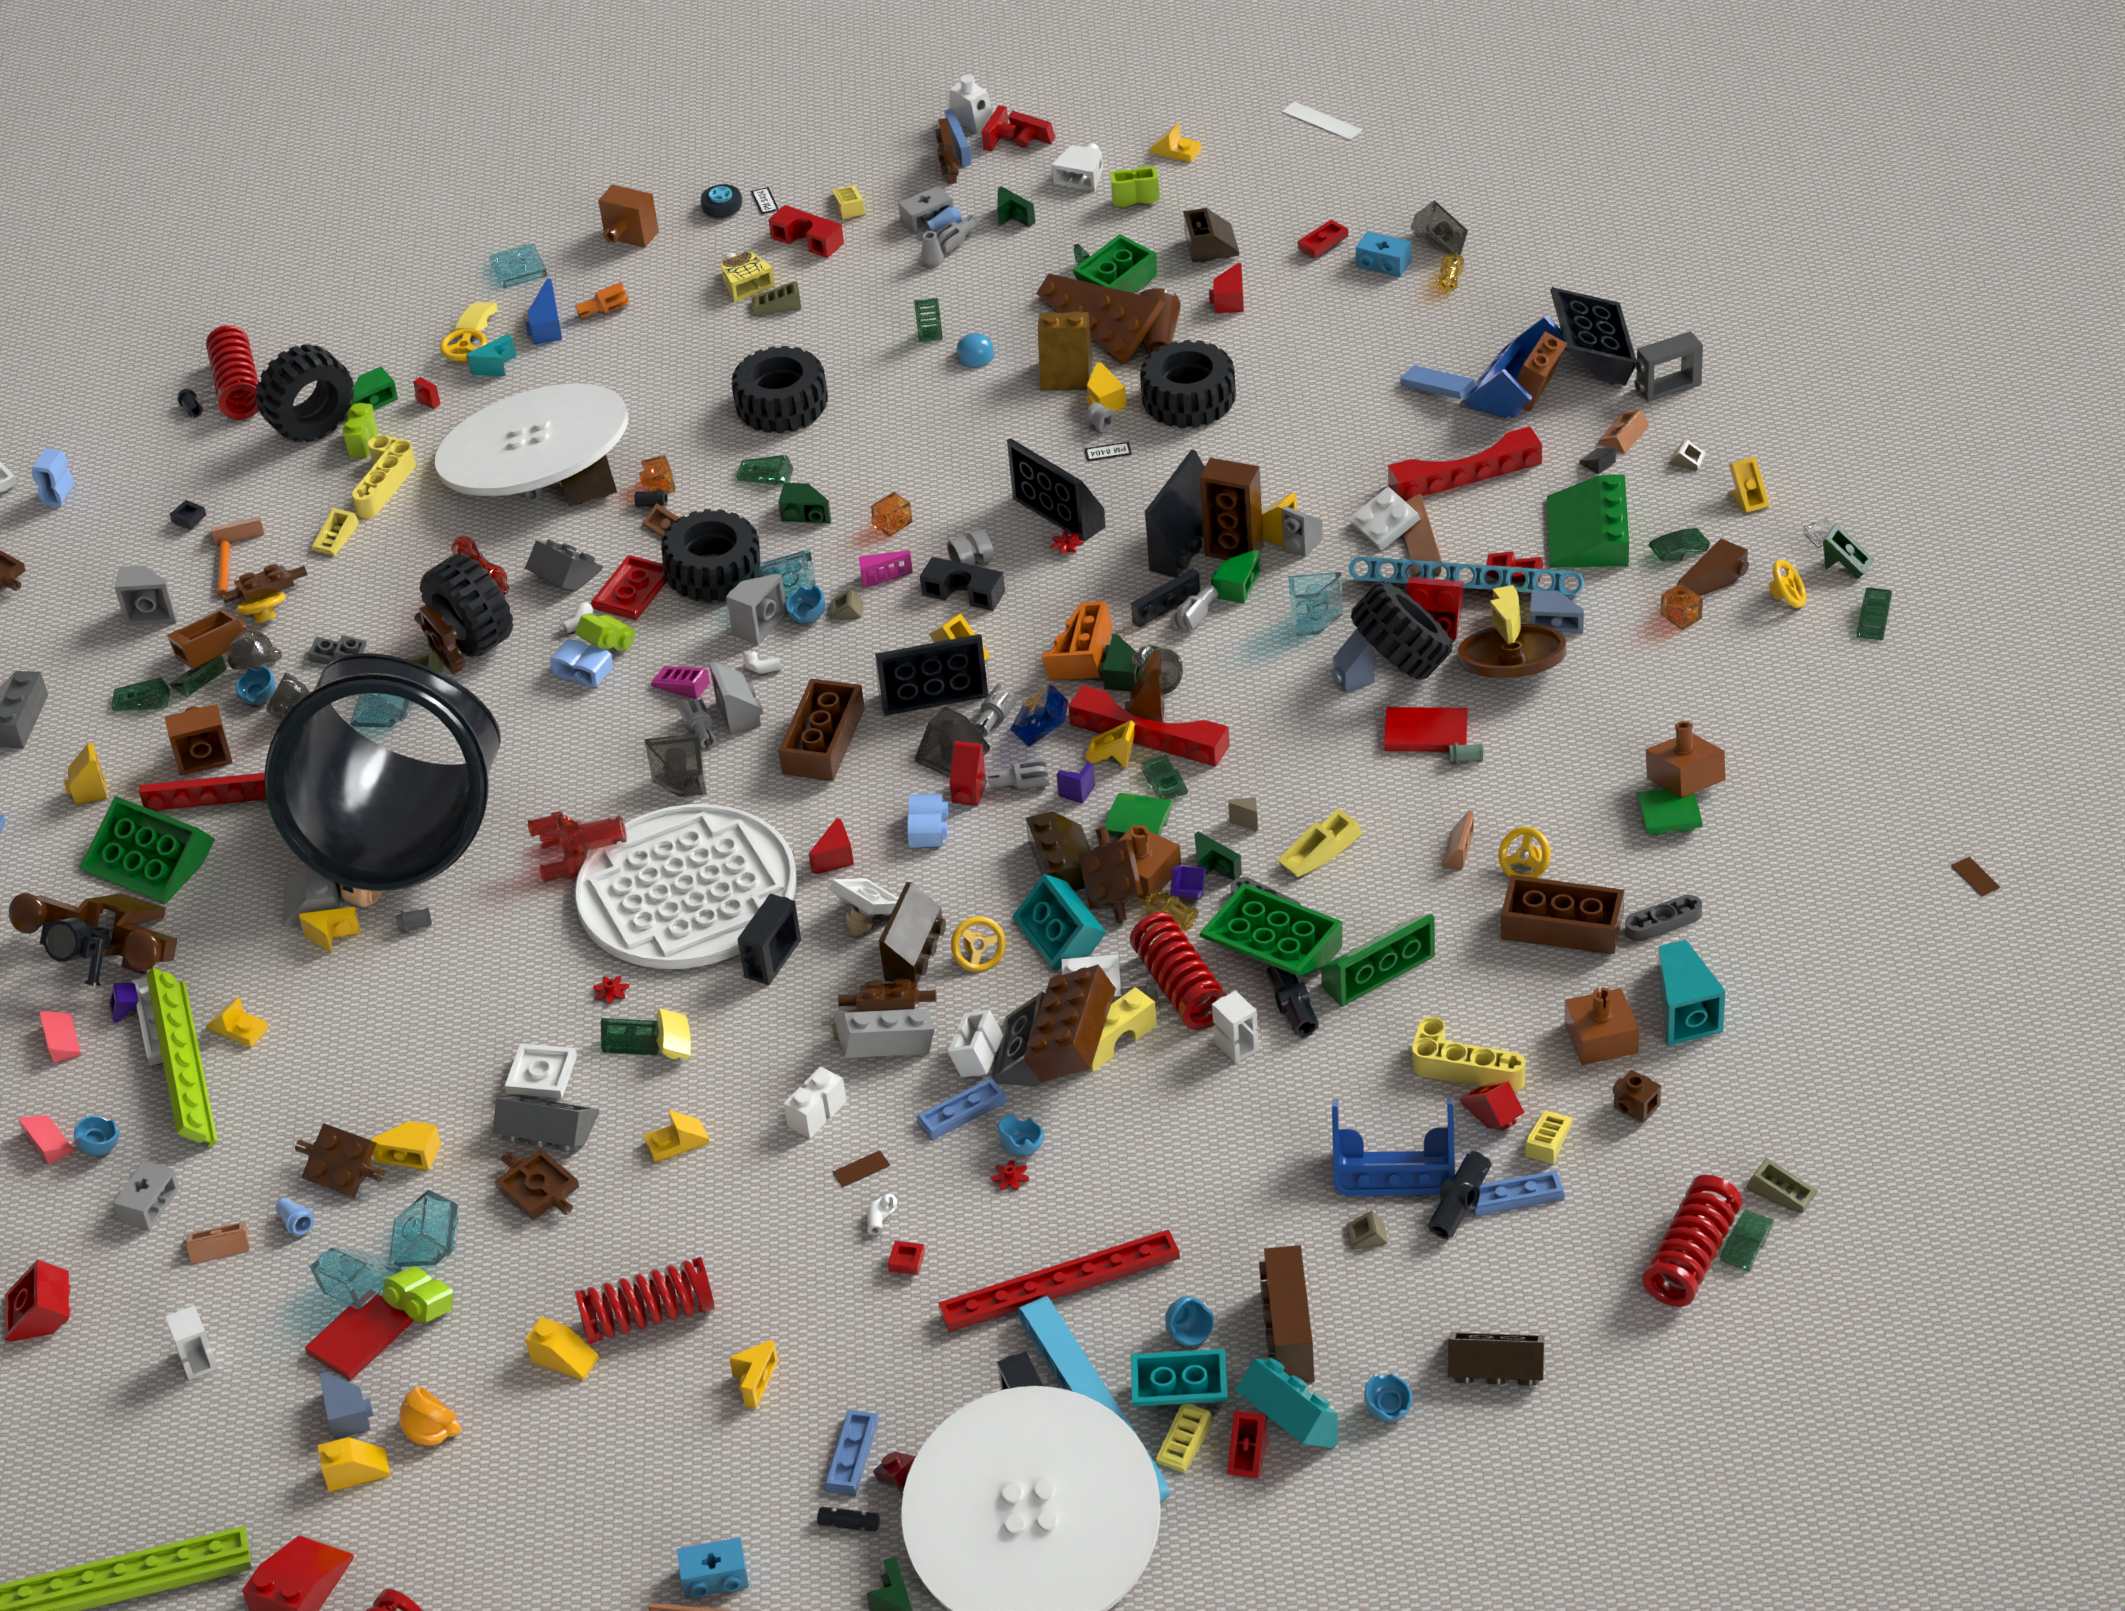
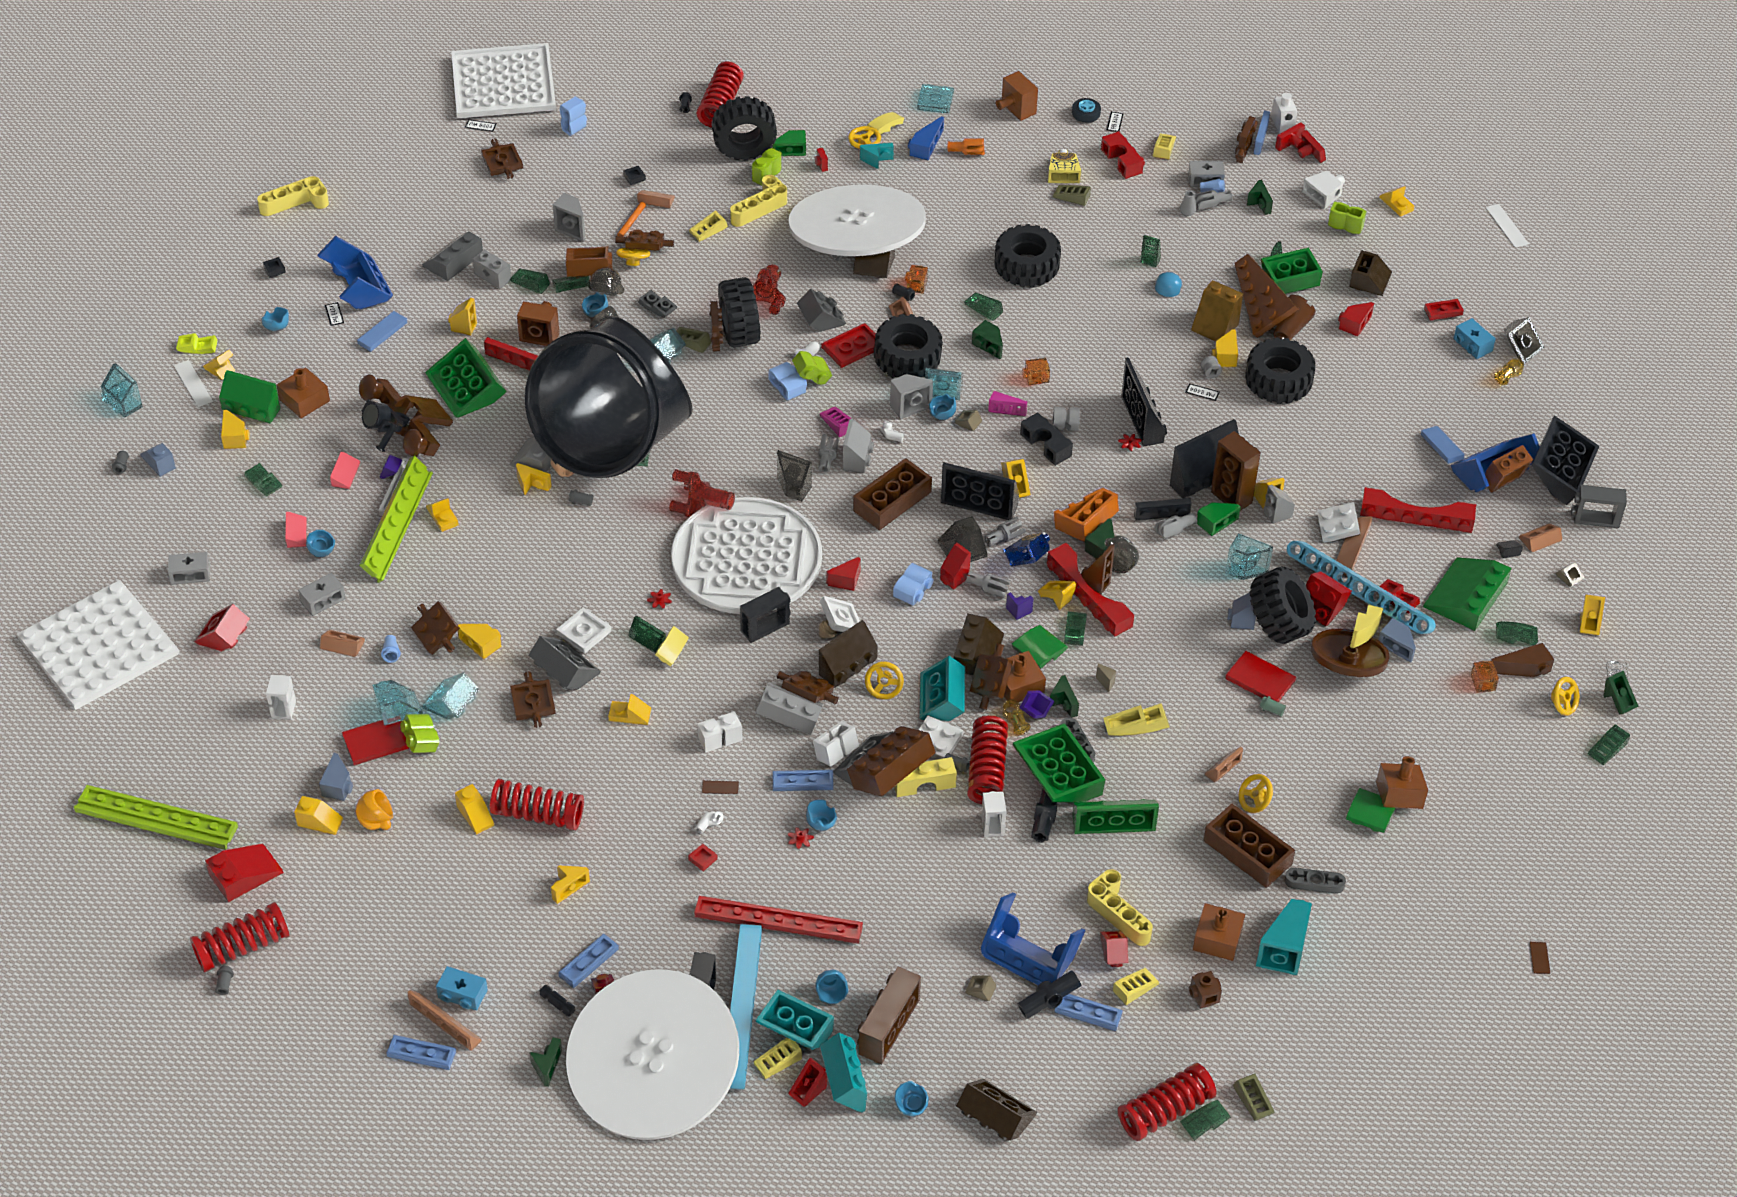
camera: 25 degrees right, 5 degrees up
(79, 704) = (492, 269): none -> light grey brick

